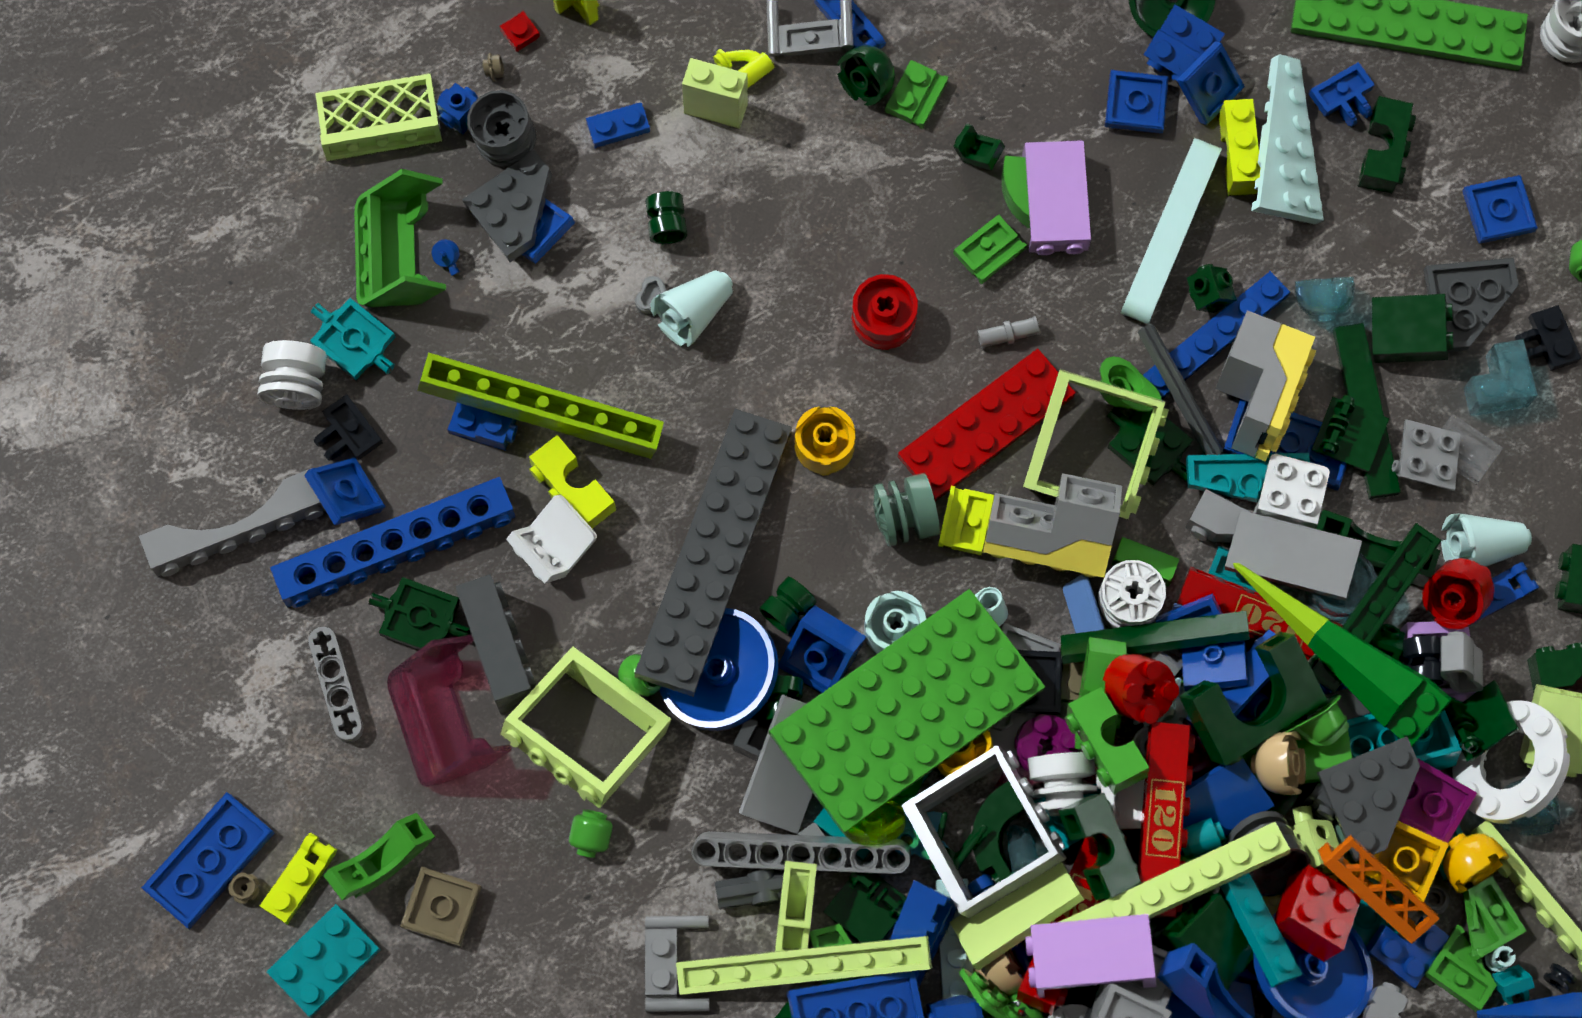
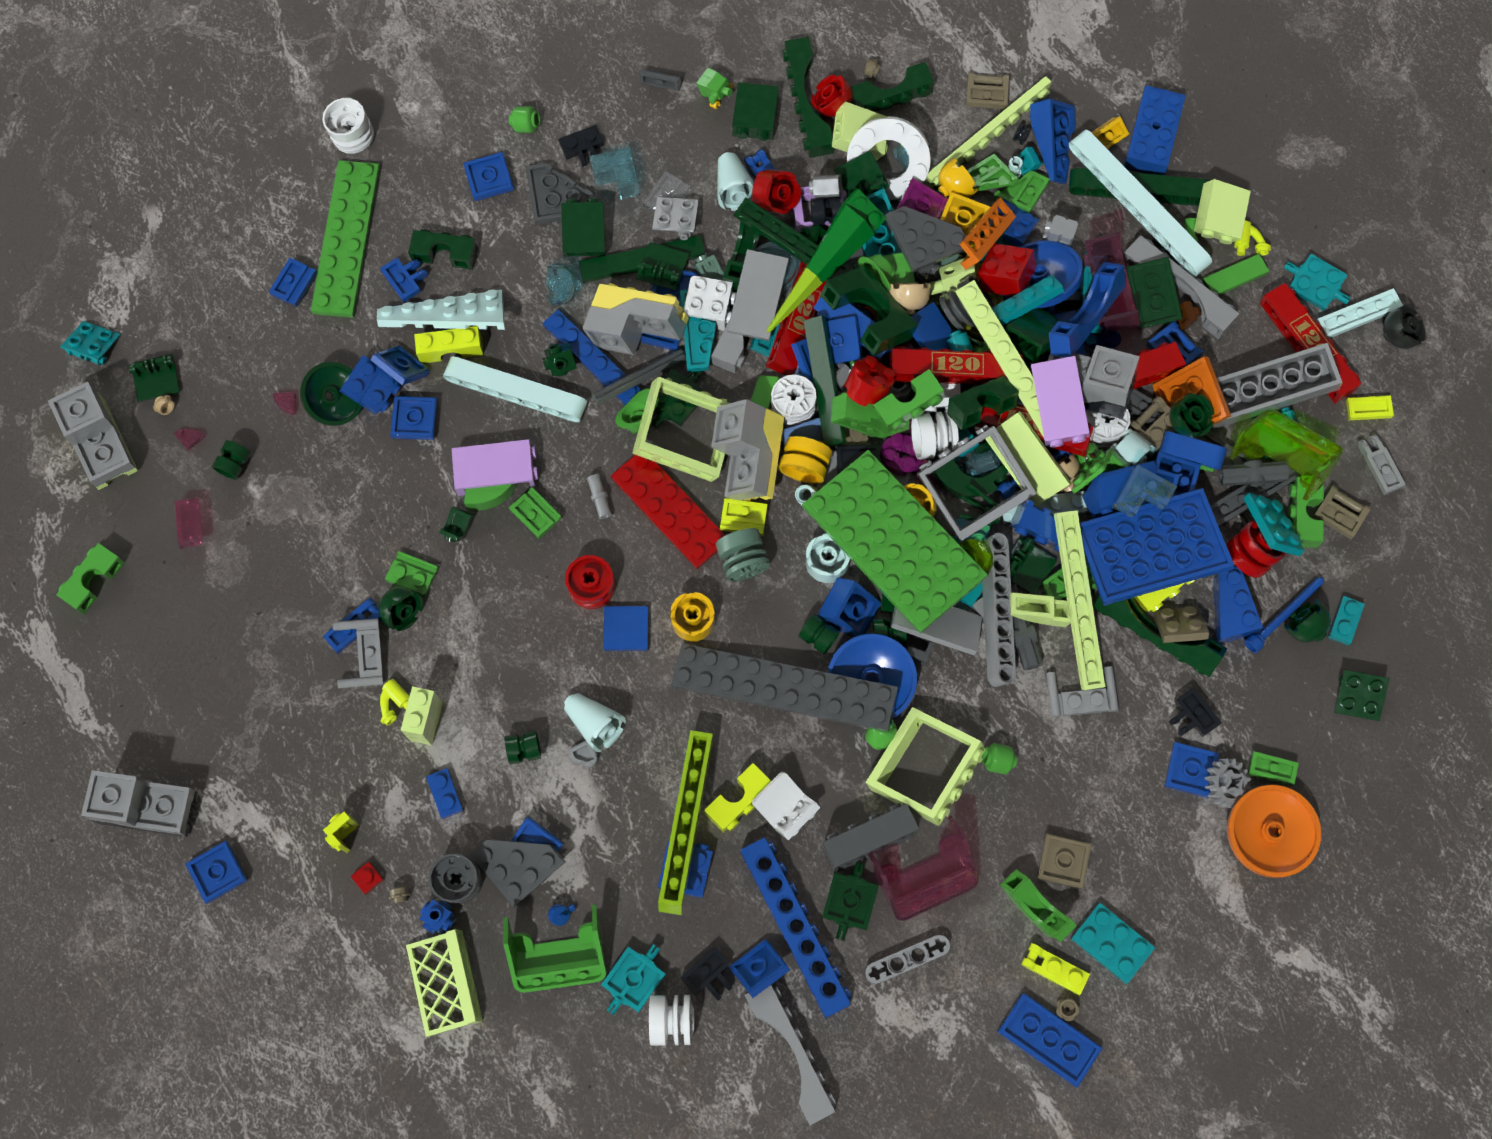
camera: 90 degrees left, 0 degrees up
(819, 357) = (626, 628): none -> blue tile
(1040, 604) = (805, 460): none -> yellow wheel
(1346, 497) = (708, 267): none -> sand green bracket

